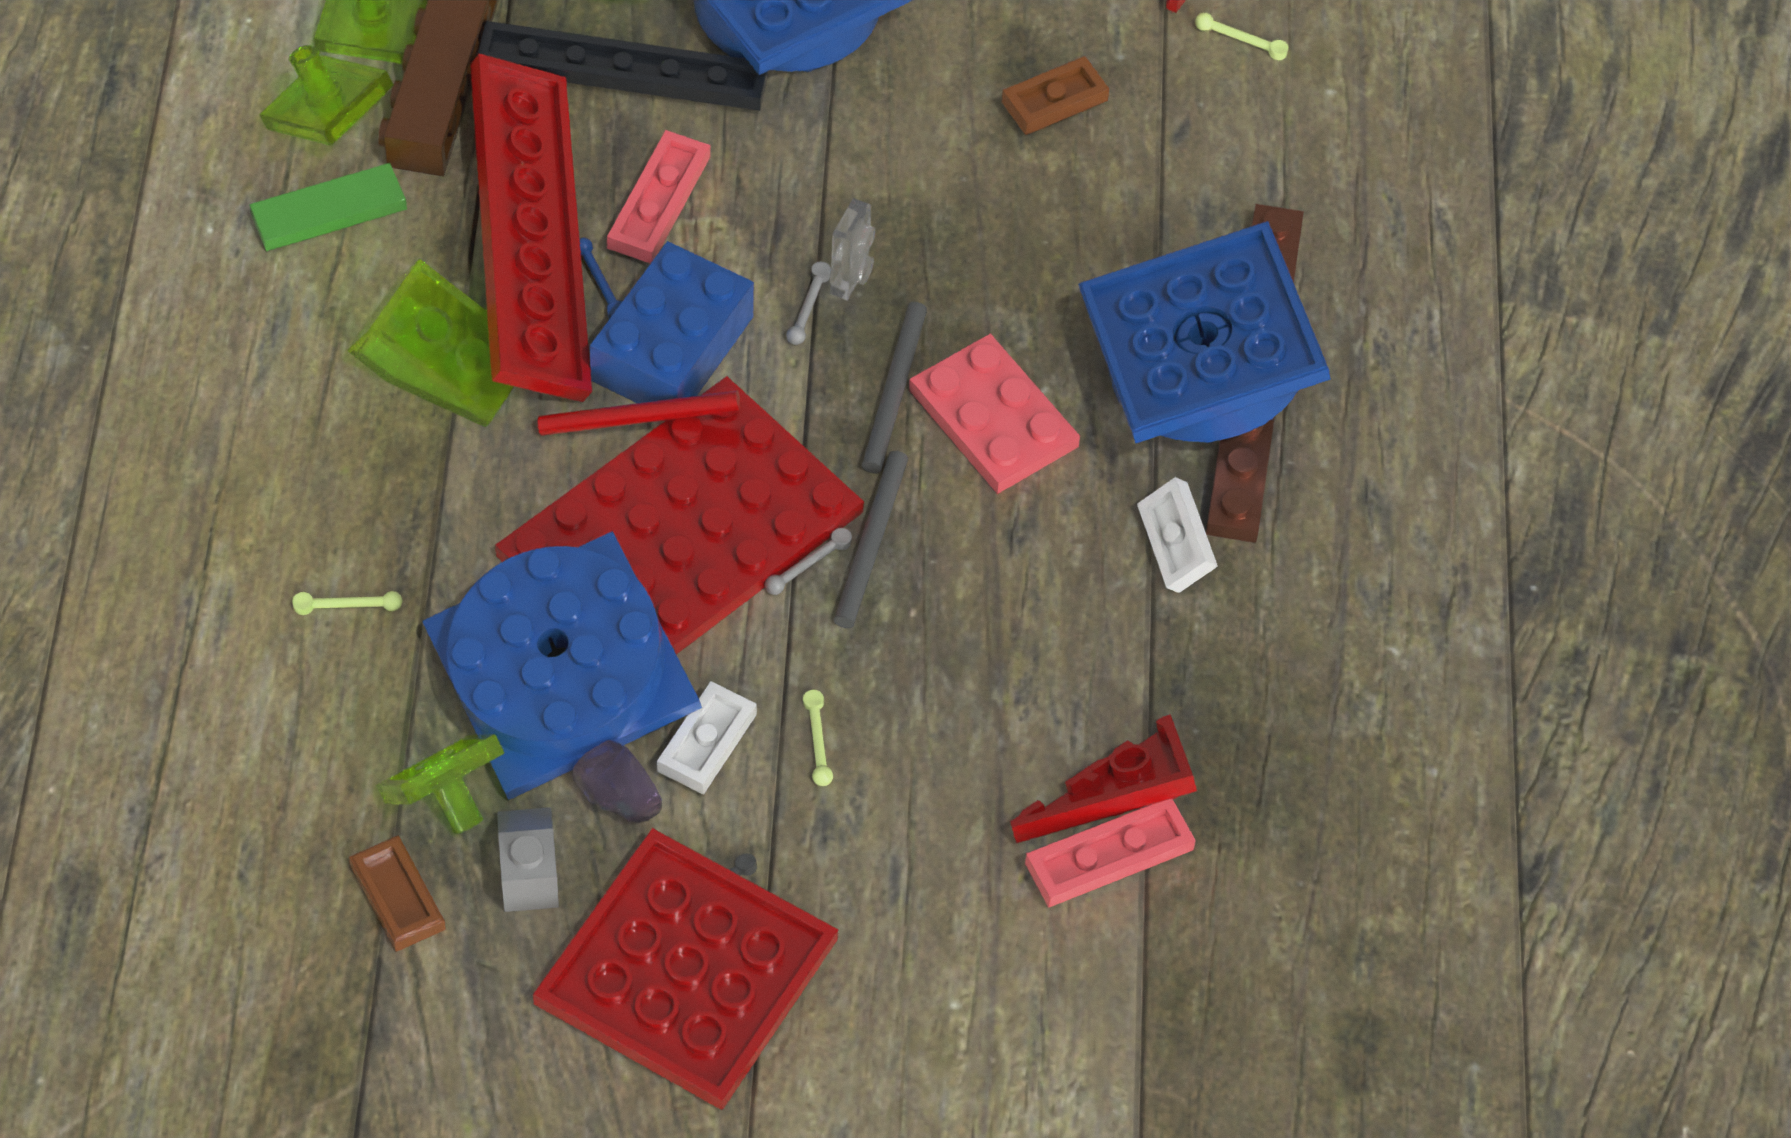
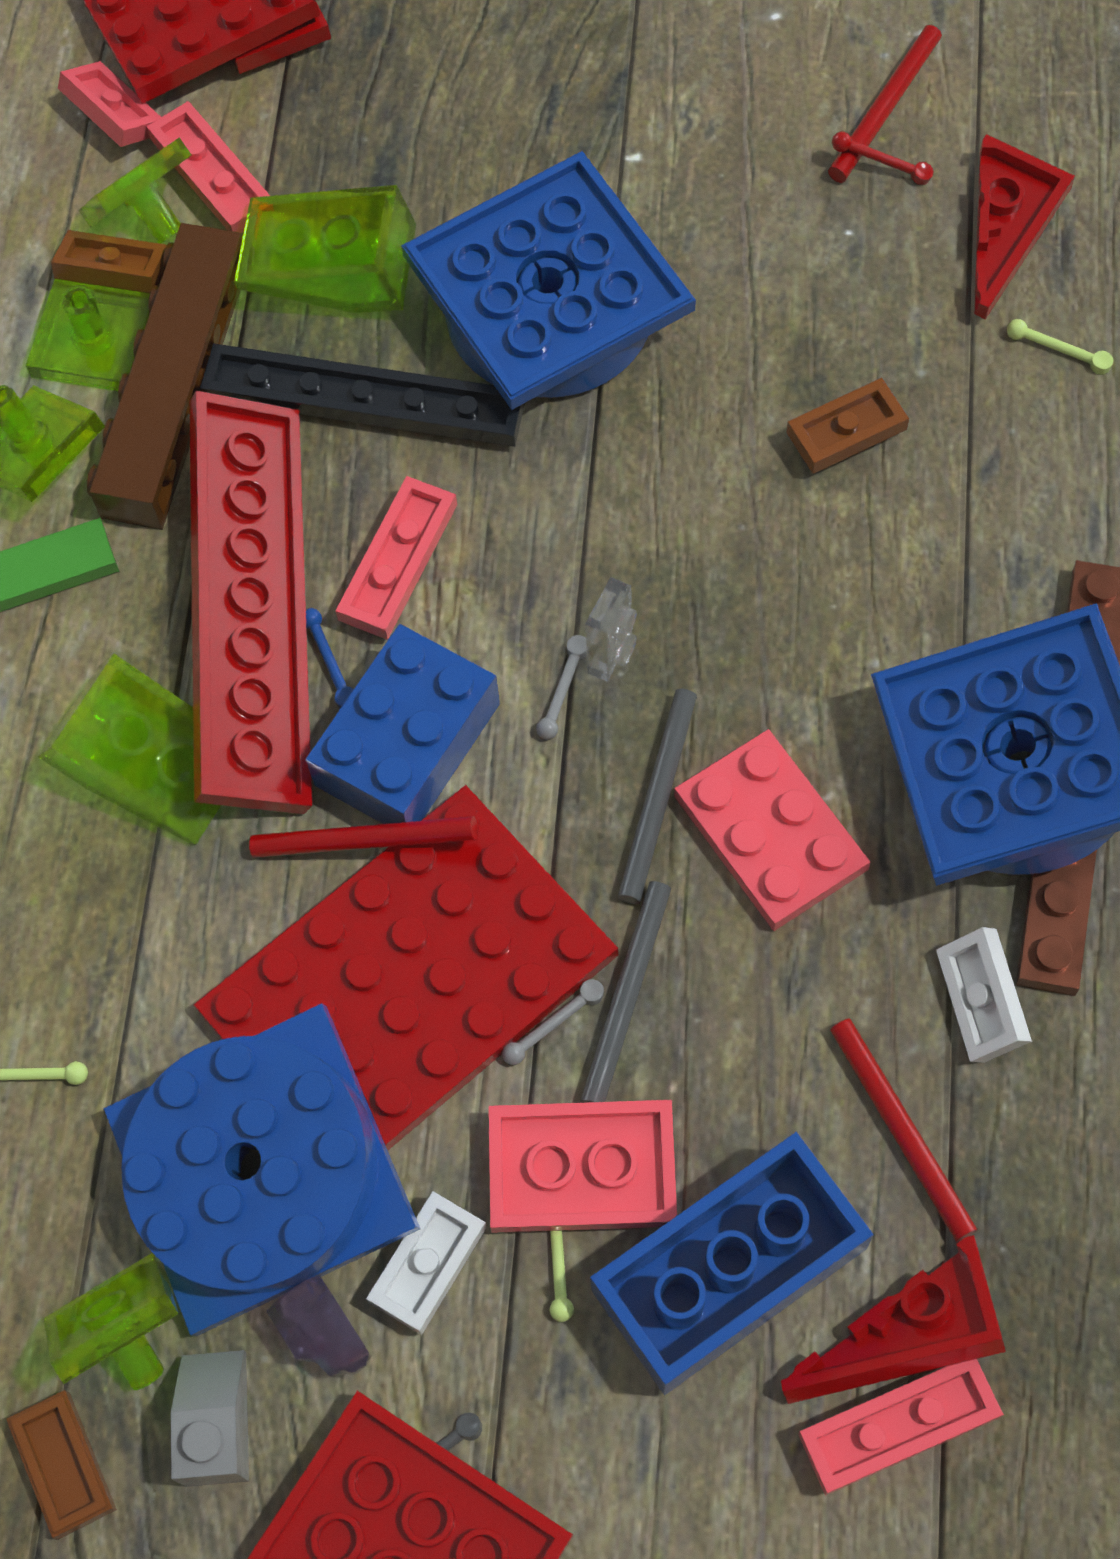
camera: 10 degrees right, 10 degrees up
(837, 665) = (581, 1166): none -> coral plate
(965, 728) = (730, 1262): none -> blue brick
(1109, 638) = (903, 1130): none -> red bar

